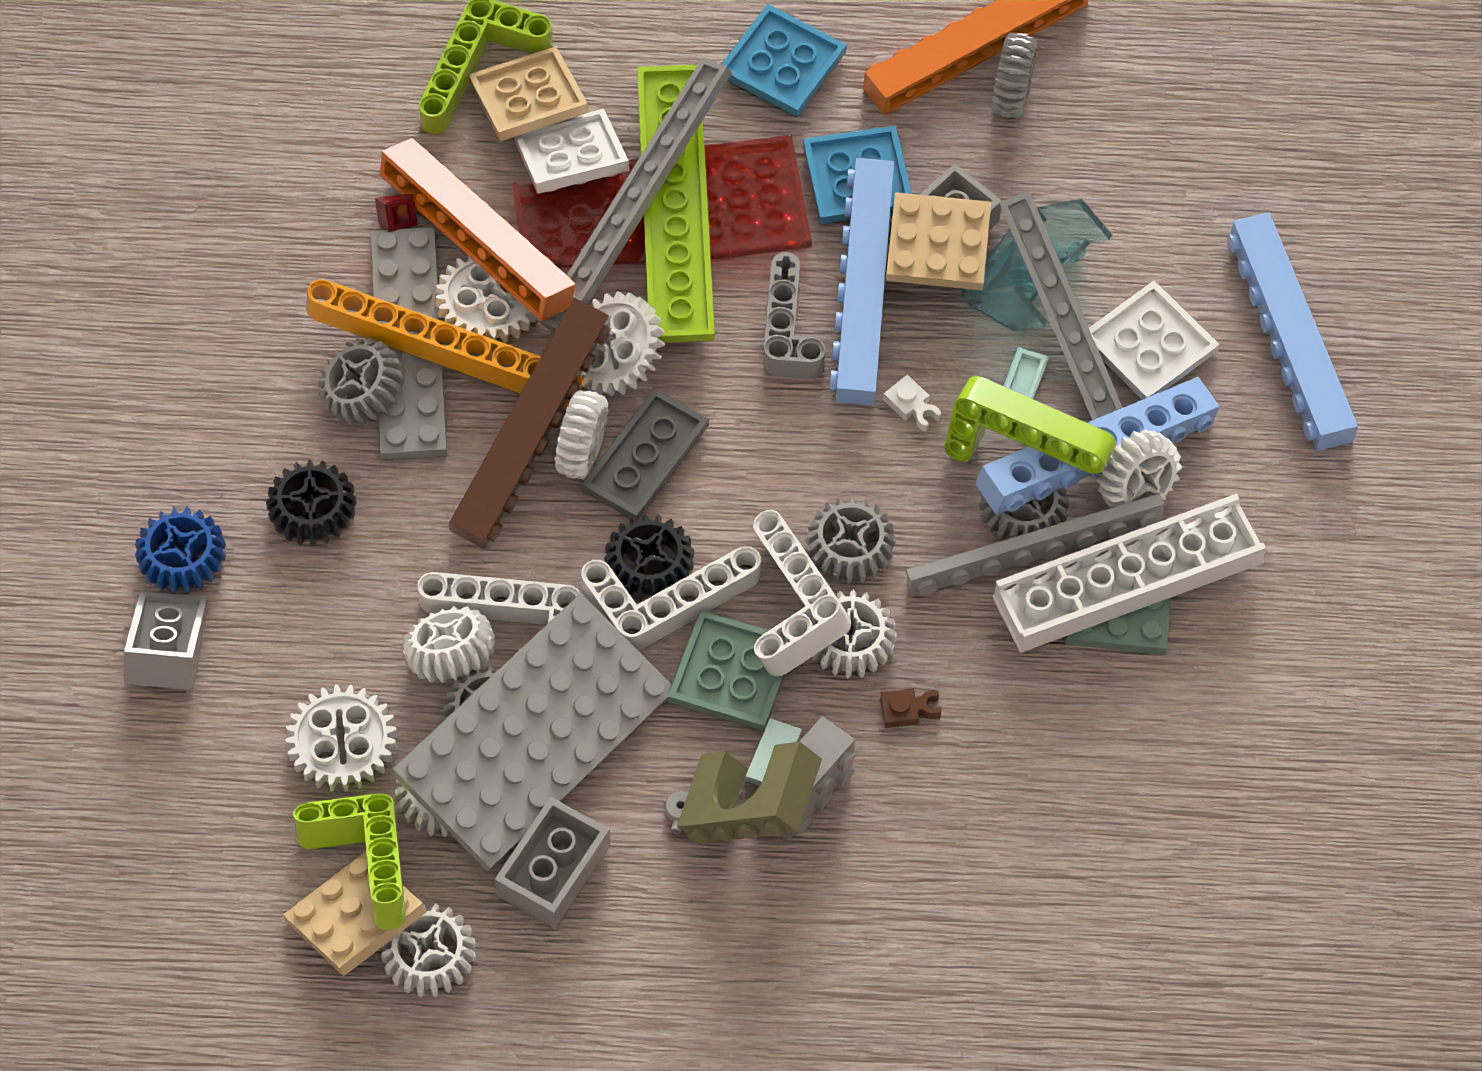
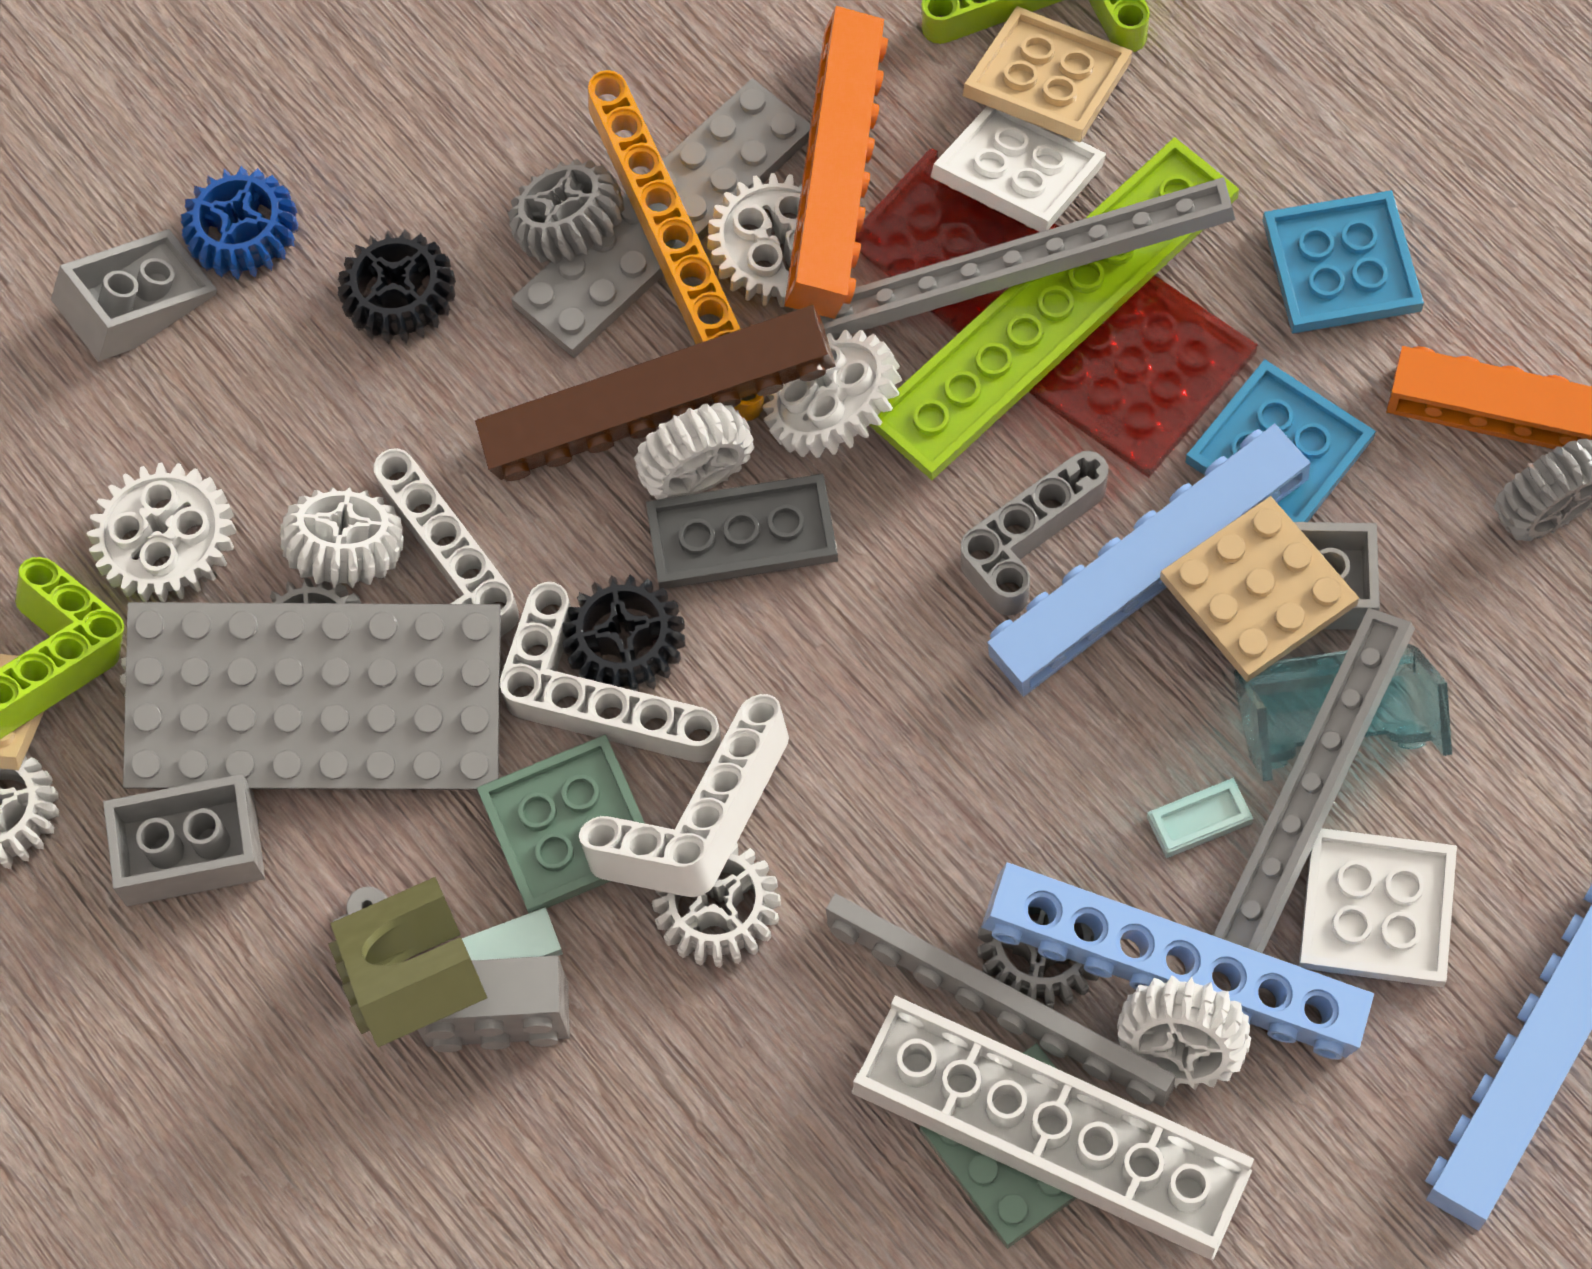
camera: 55 degrees right, 5 degrees up
(396, 212) = (794, 80): dark red slope -> none
(845, 556) = (812, 802): light grey gear -> none
(903, 708) = (685, 1029): reddish brown plate -> none
(911, 400) = (1060, 726): white plate -> none
(1027, 421) = (1085, 808): lime beam -> none

